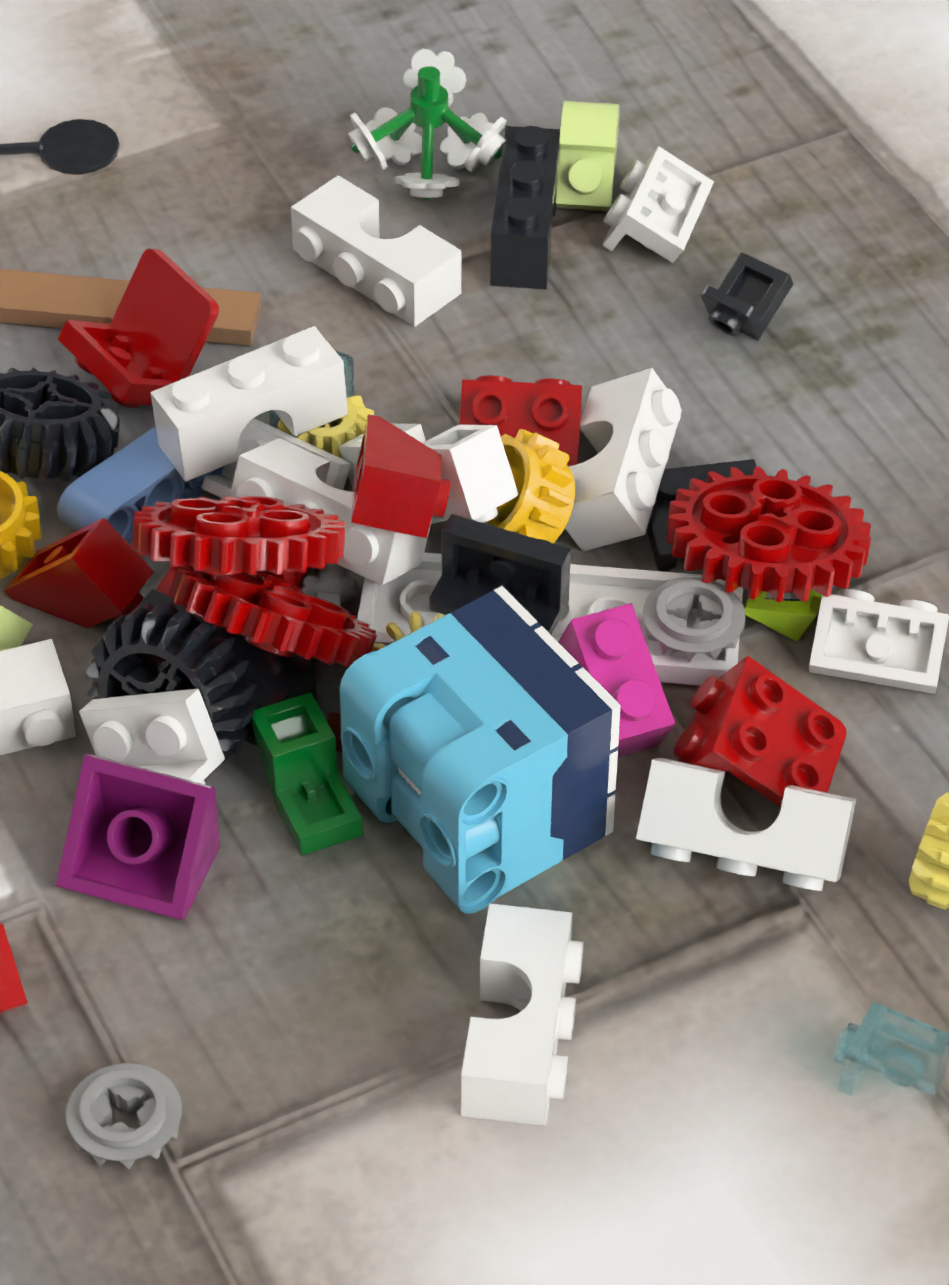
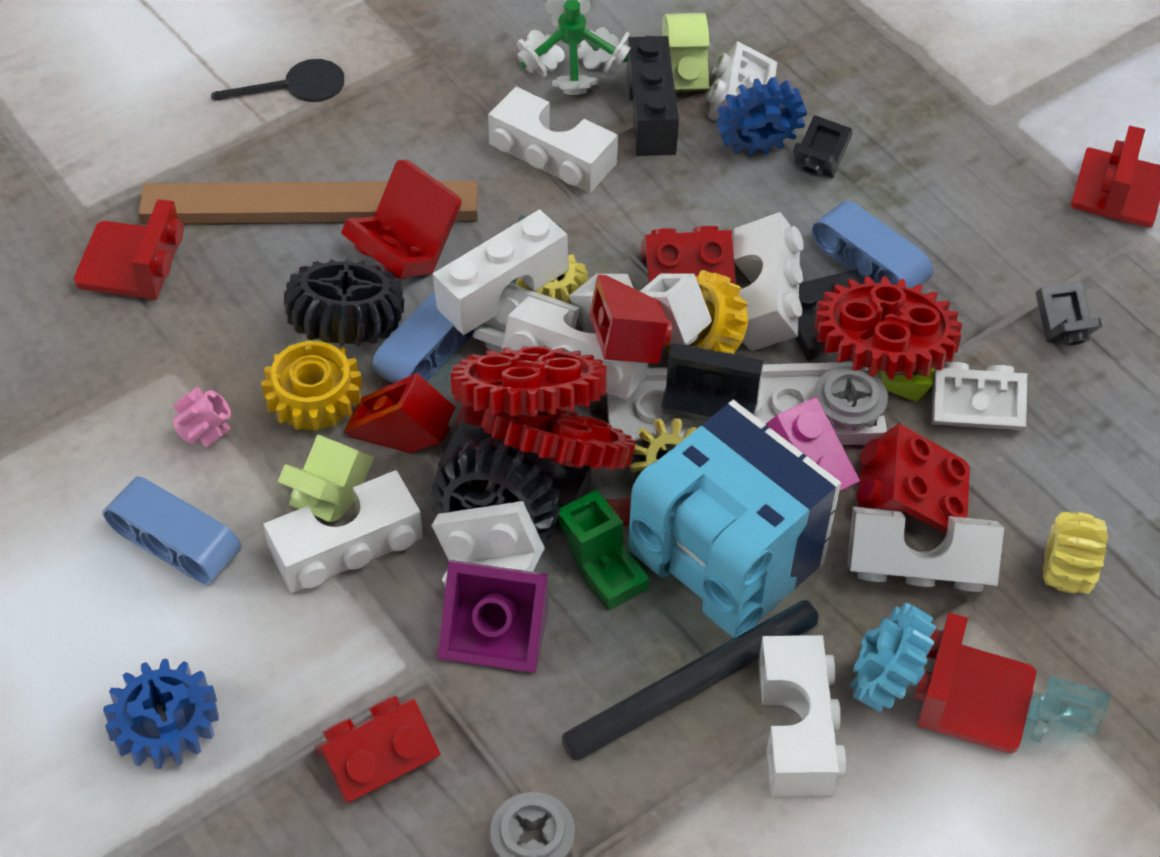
camera: 10 degrees left, 5 degrees up
(373, 956) = (685, 682): none -> black axle
(659, 950) = (893, 657): none -> medium azure gear
(664, 246) = (758, 118): none -> blue gear
(765, 1012) = (974, 691): none -> red bracket
(779, 431) = (870, 246): none -> medium blue beam

